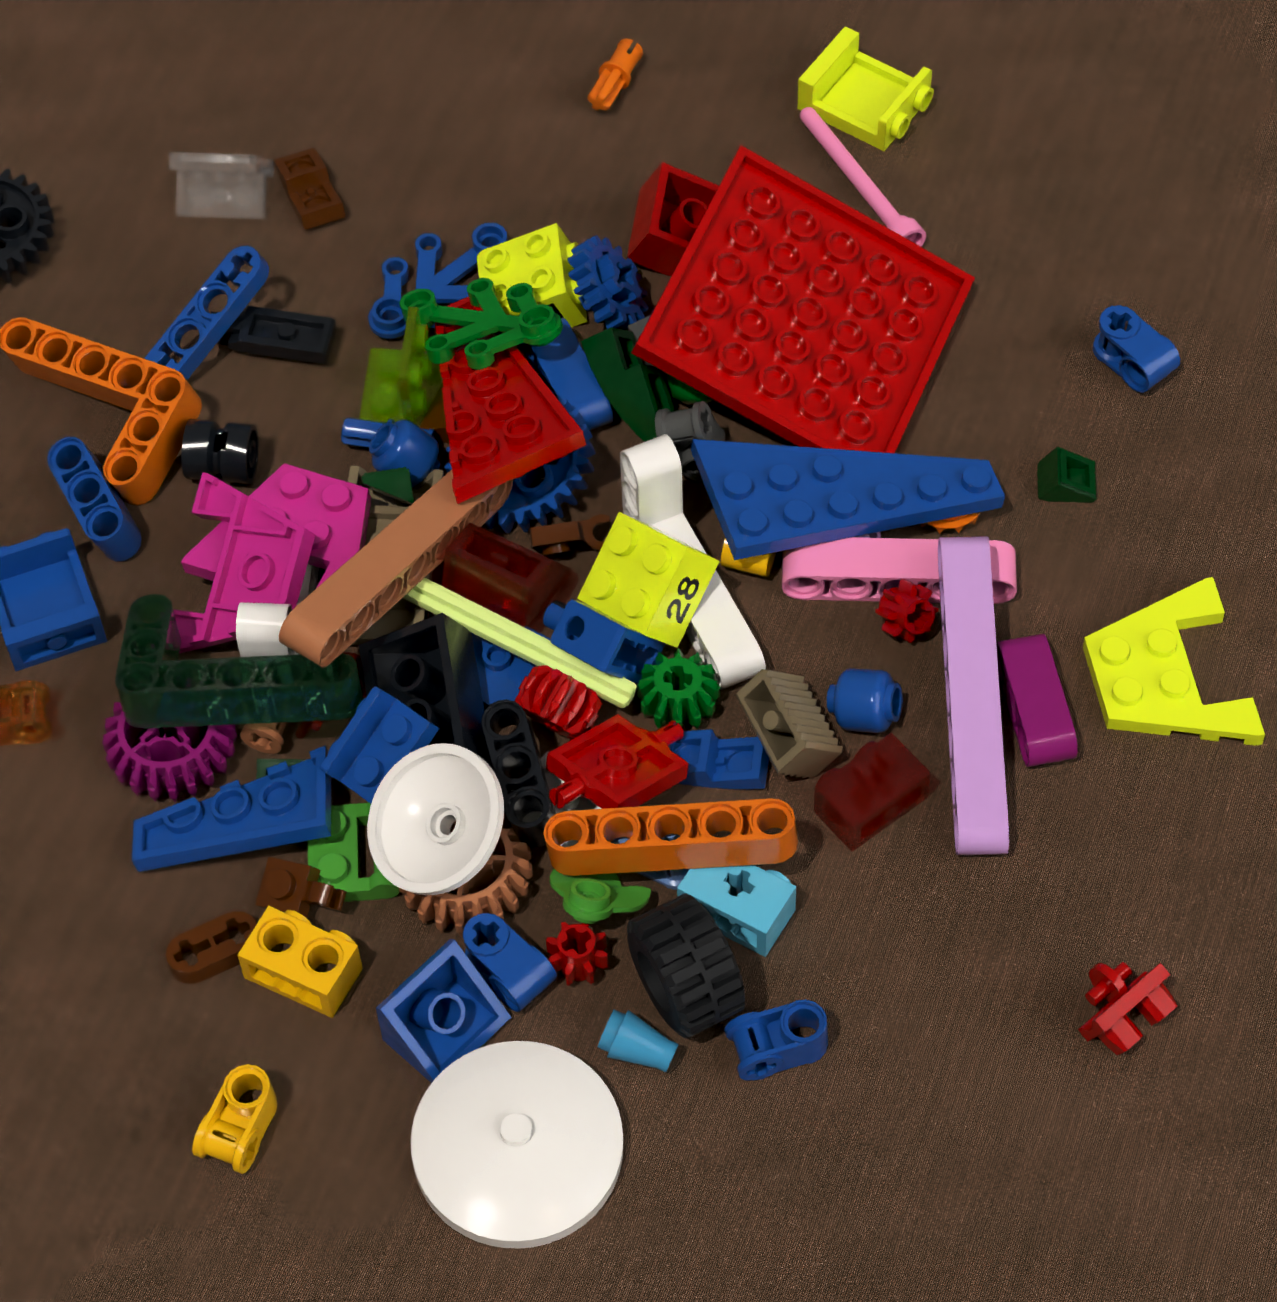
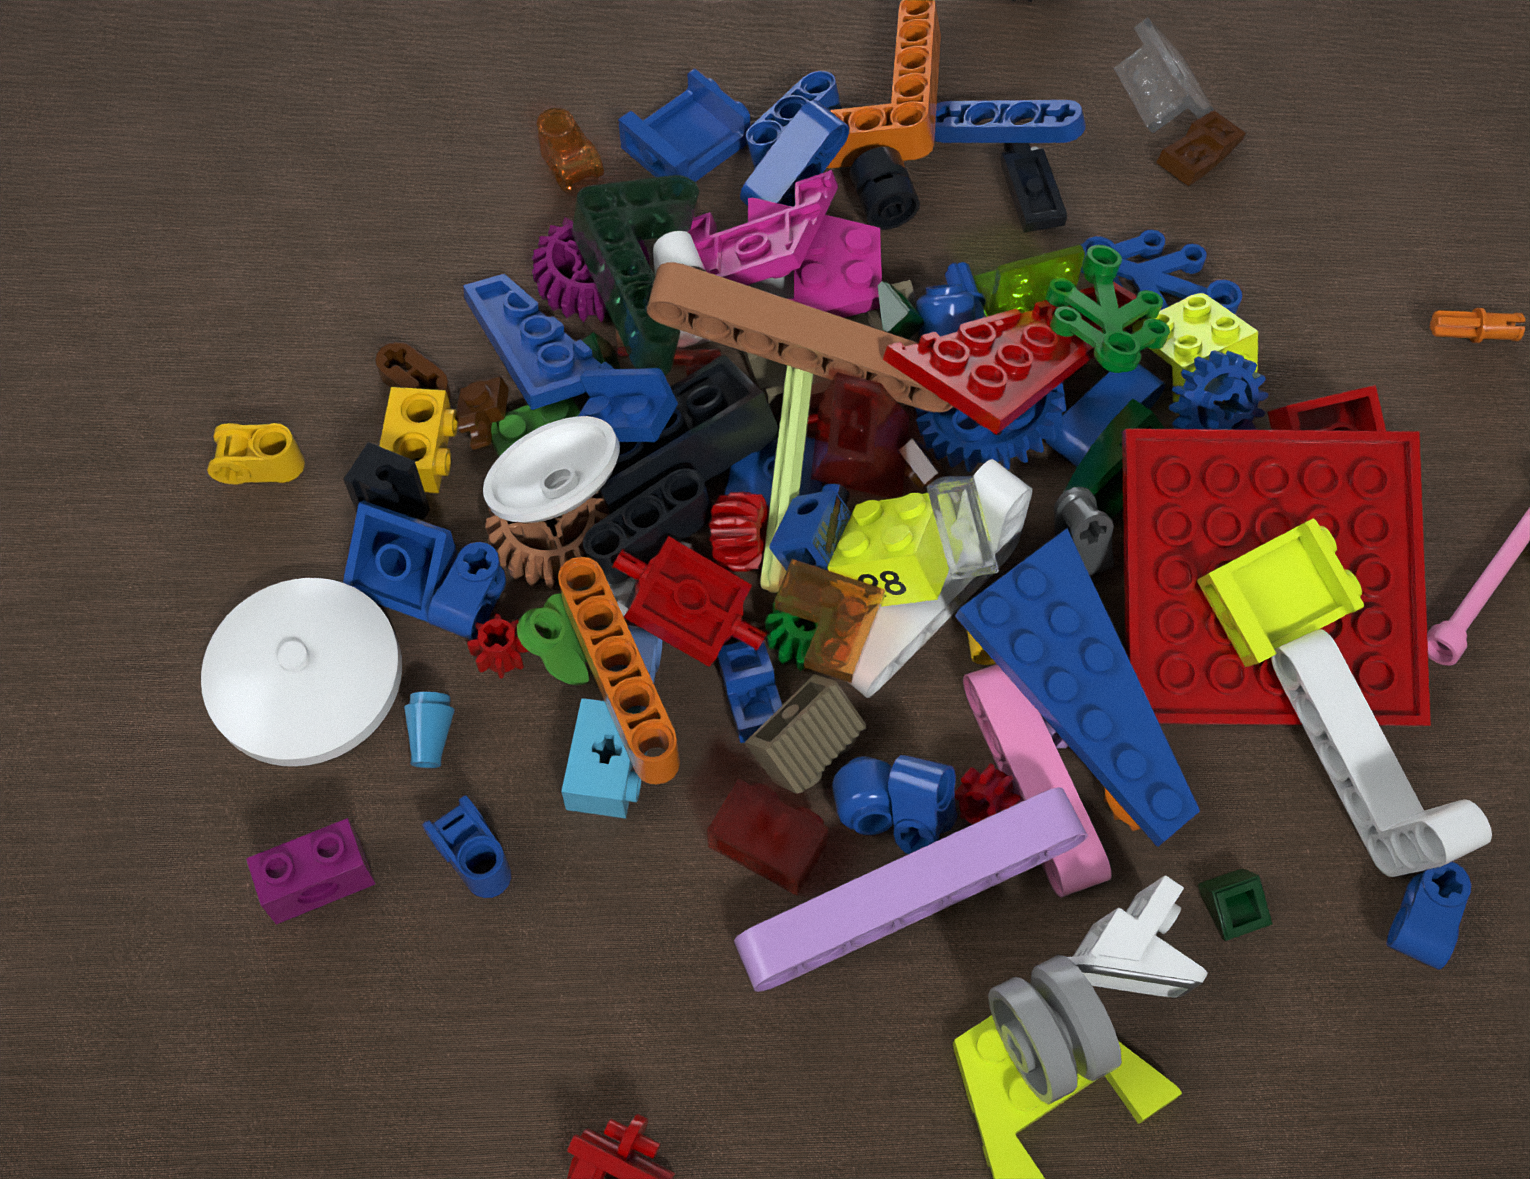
camera: 65 degrees right, 5 degrees up
(154, 508) = (798, 154): none -> beam
(355, 986) = (387, 482): none -> black hinge
(664, 506) = (962, 526): none -> clear slope
(686, 965) = (494, 731): black tyre -> none
(693, 639) = (842, 609): none -> clear orange plate
(749, 1181) = (310, 871): none -> magenta brick
(830, 311) = (1281, 591): none -> neon yellow panel
(902, 653) = (921, 801): none -> blue piece
(1006, 334) = (1365, 769): none -> white beam
(1036, 700) = (942, 957): magenta beam -> none
(1083, 550) = (1128, 955): none -> white piece
(1145, 622) = (1055, 1028): none -> light grey wheel

